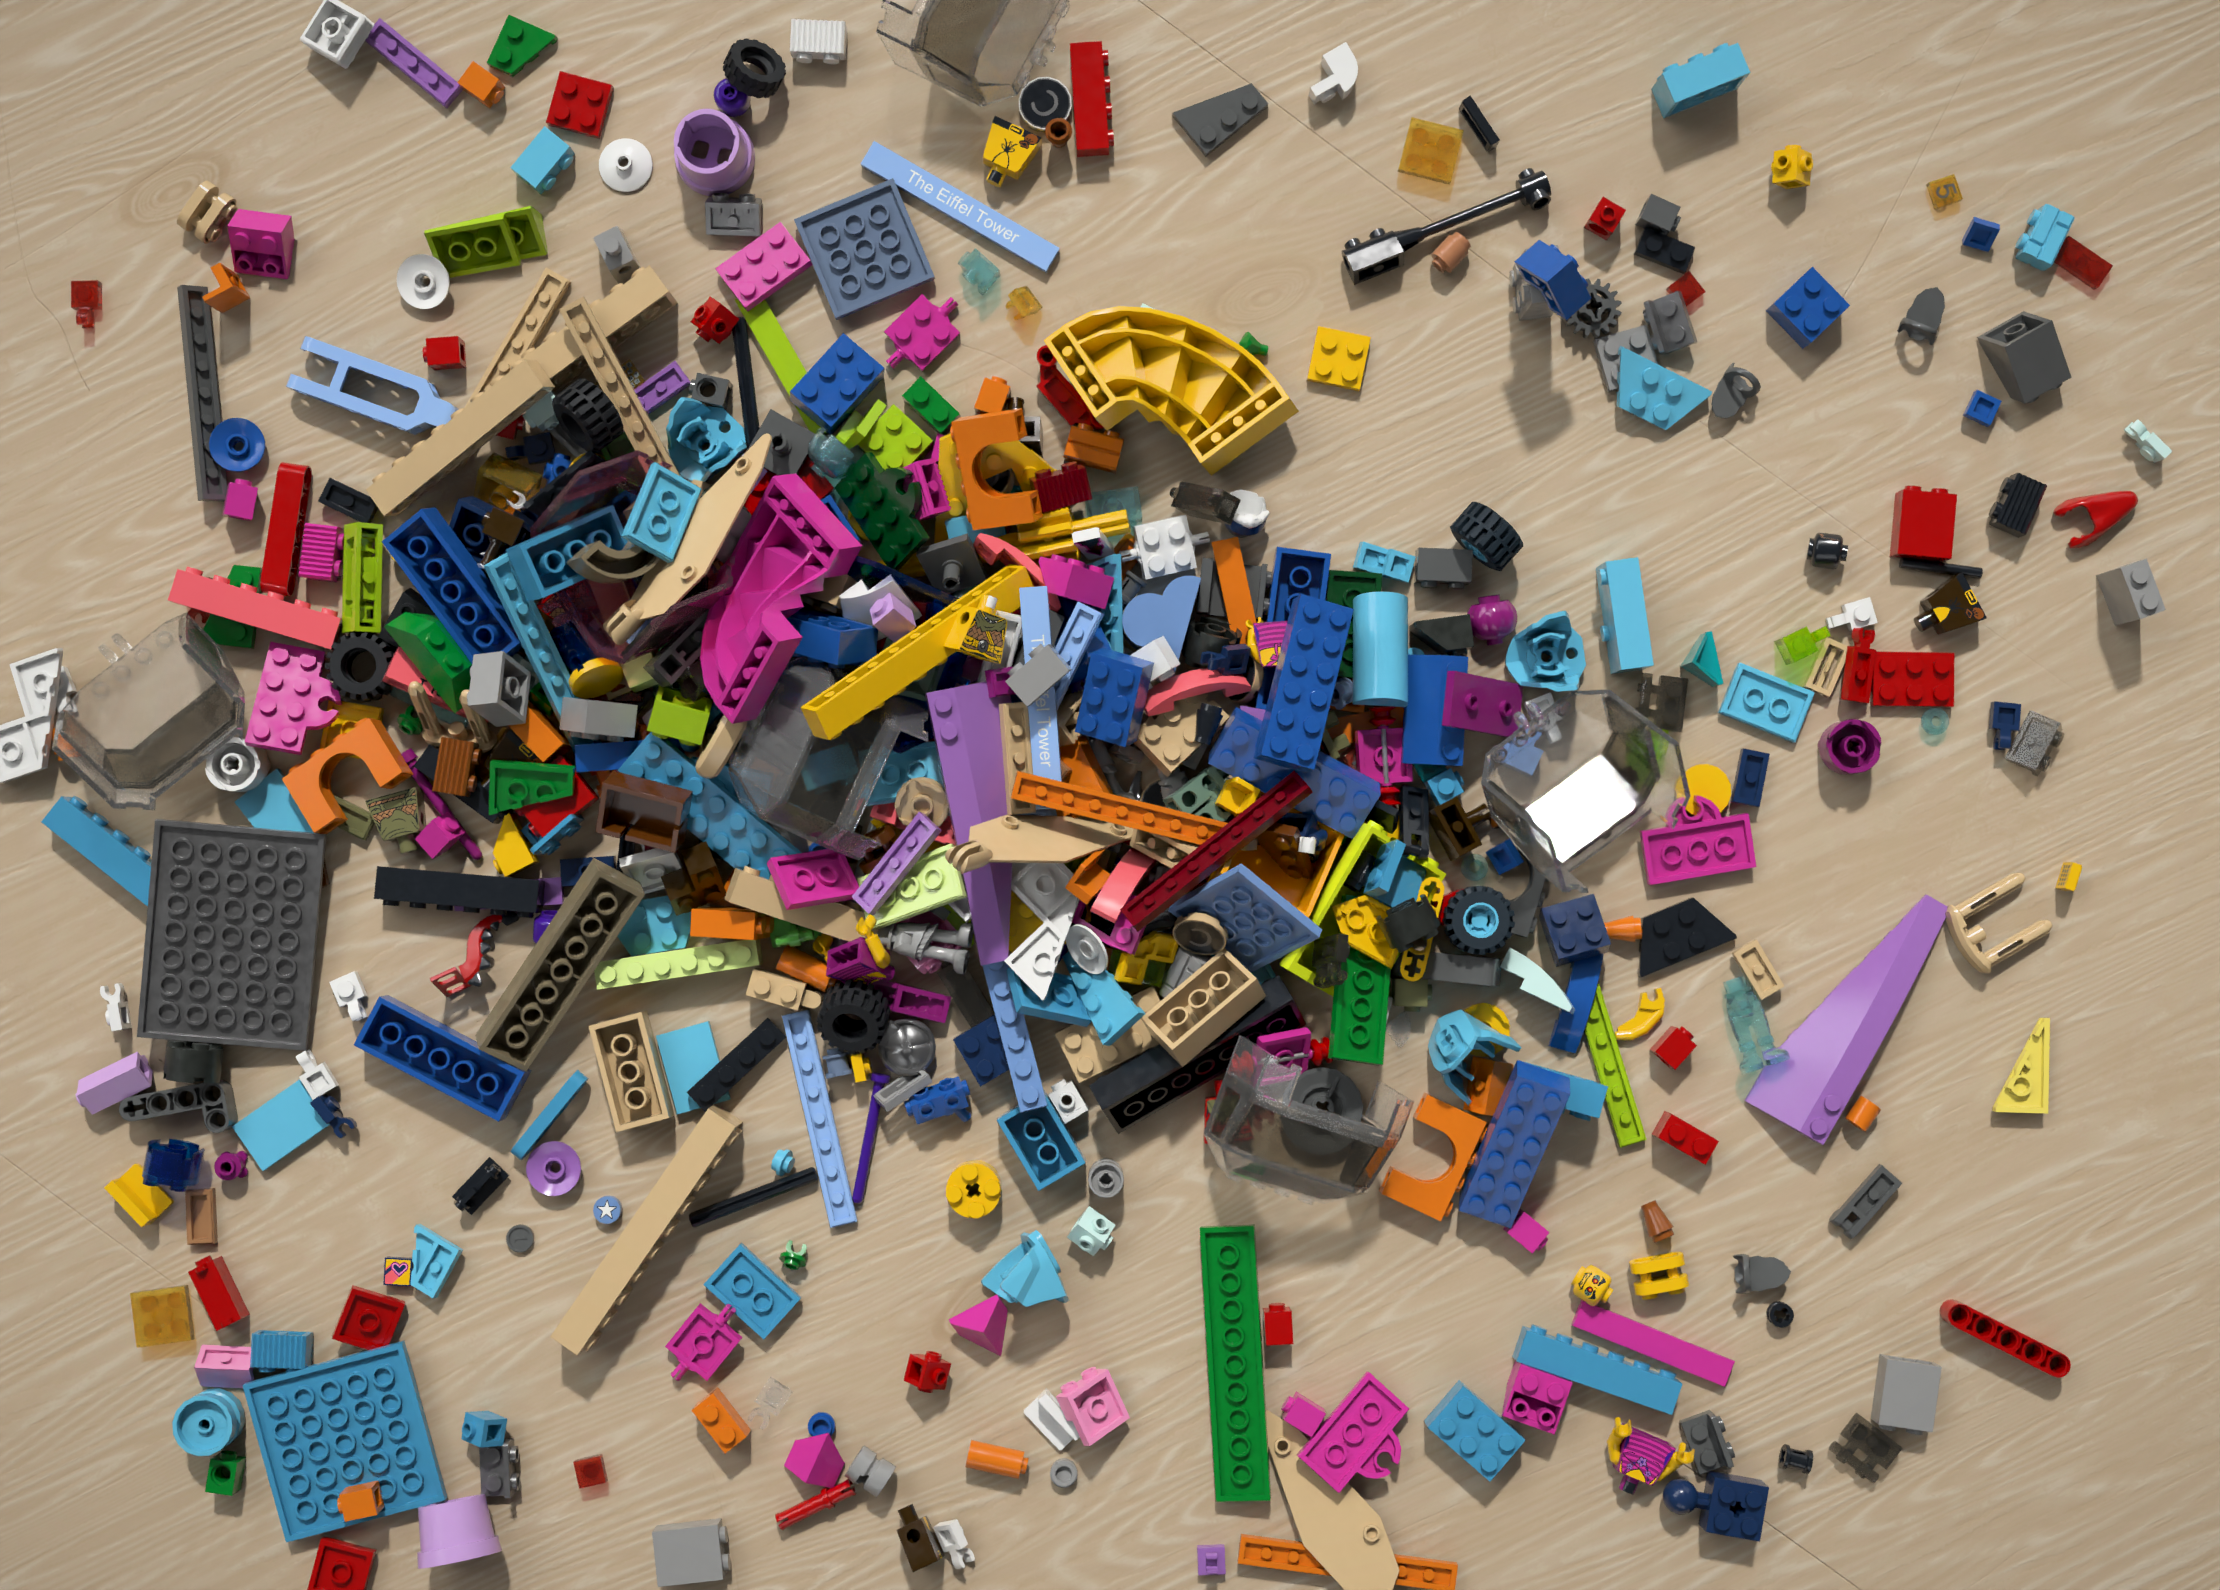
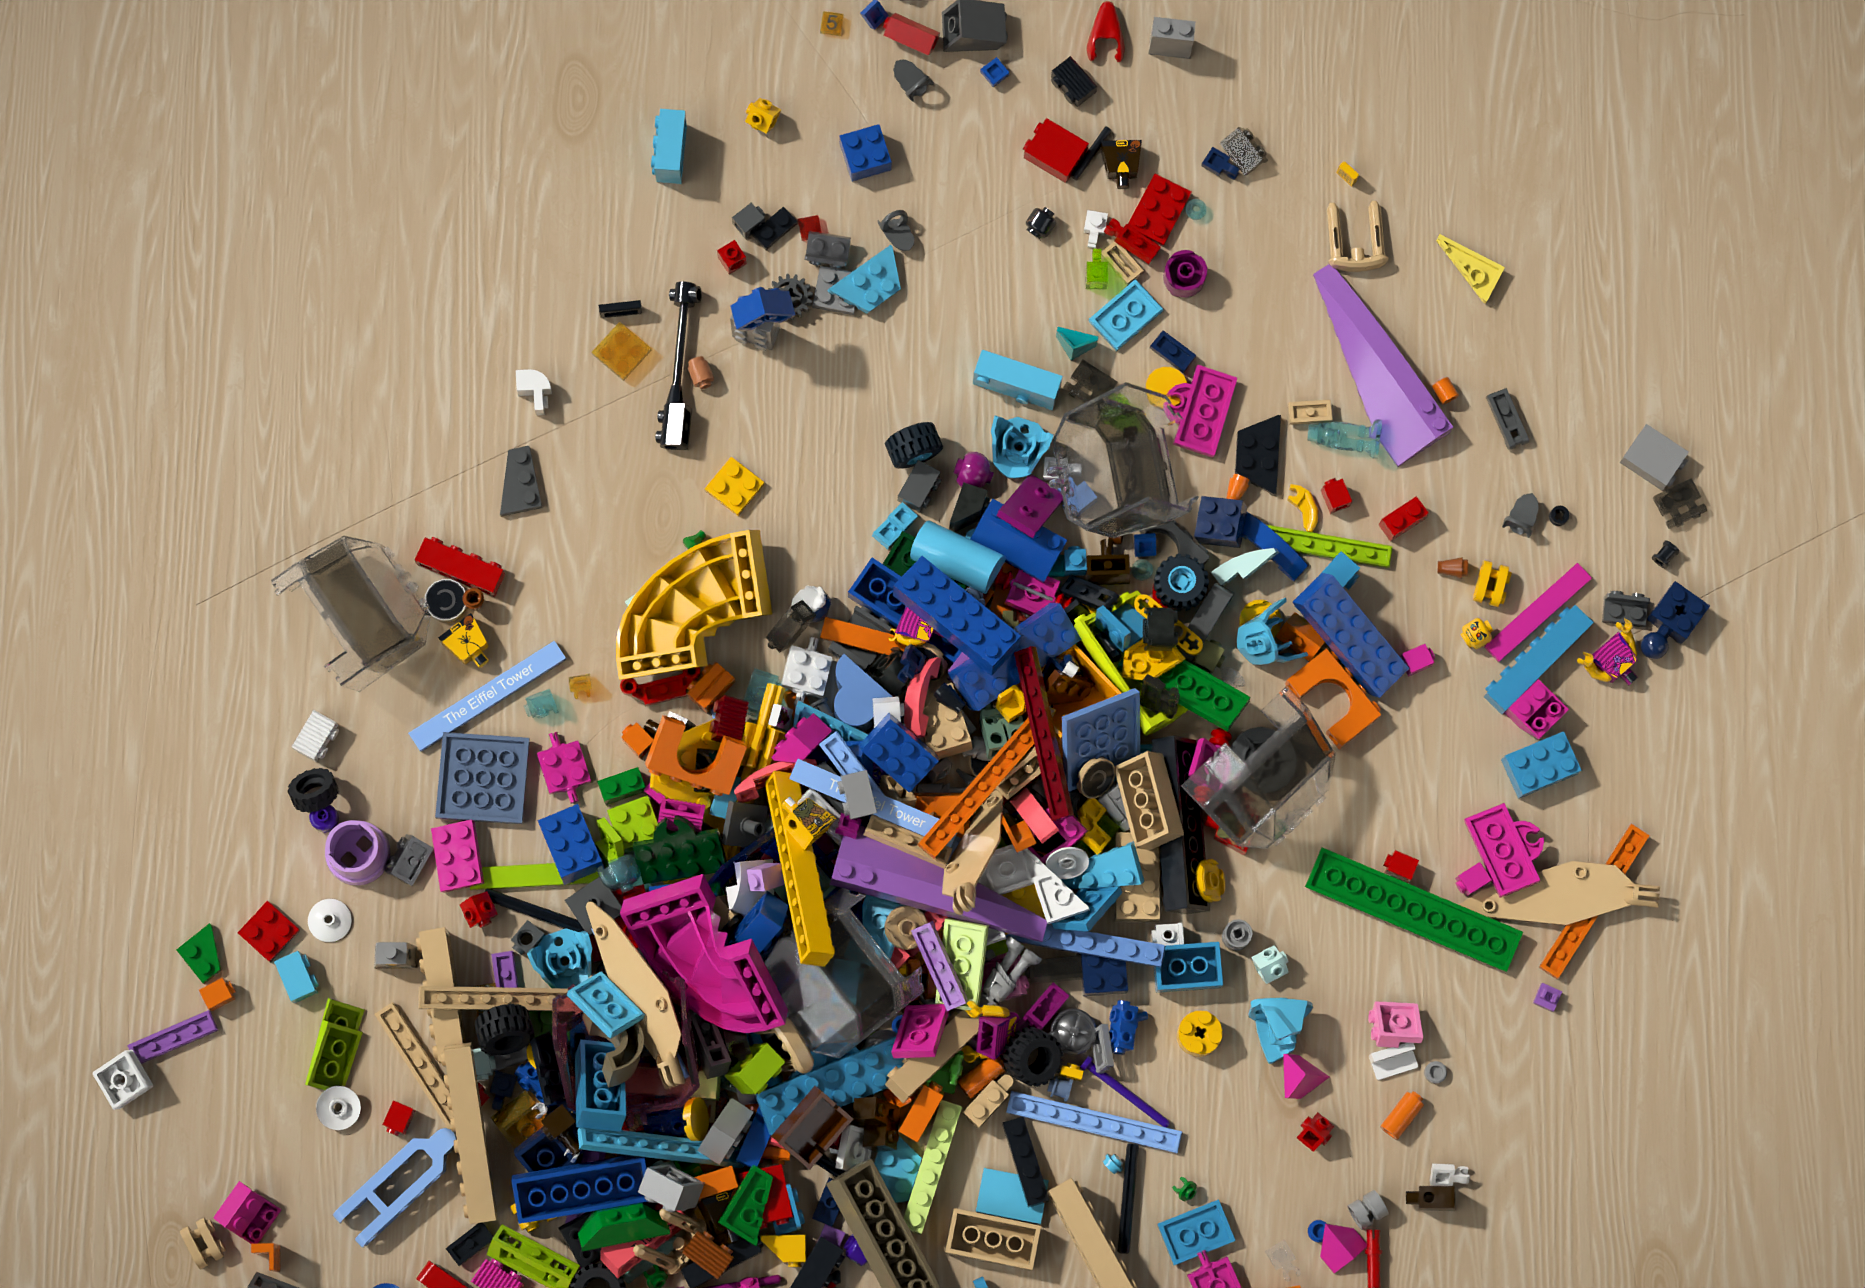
camera: 65 degrees left, 10 degrees down
(1152, 1118) = (1210, 880): none -> yellow tile
(1979, 288) = (911, 33): none -> red brick
(2015, 1345) = (1656, 368): red beam -> none

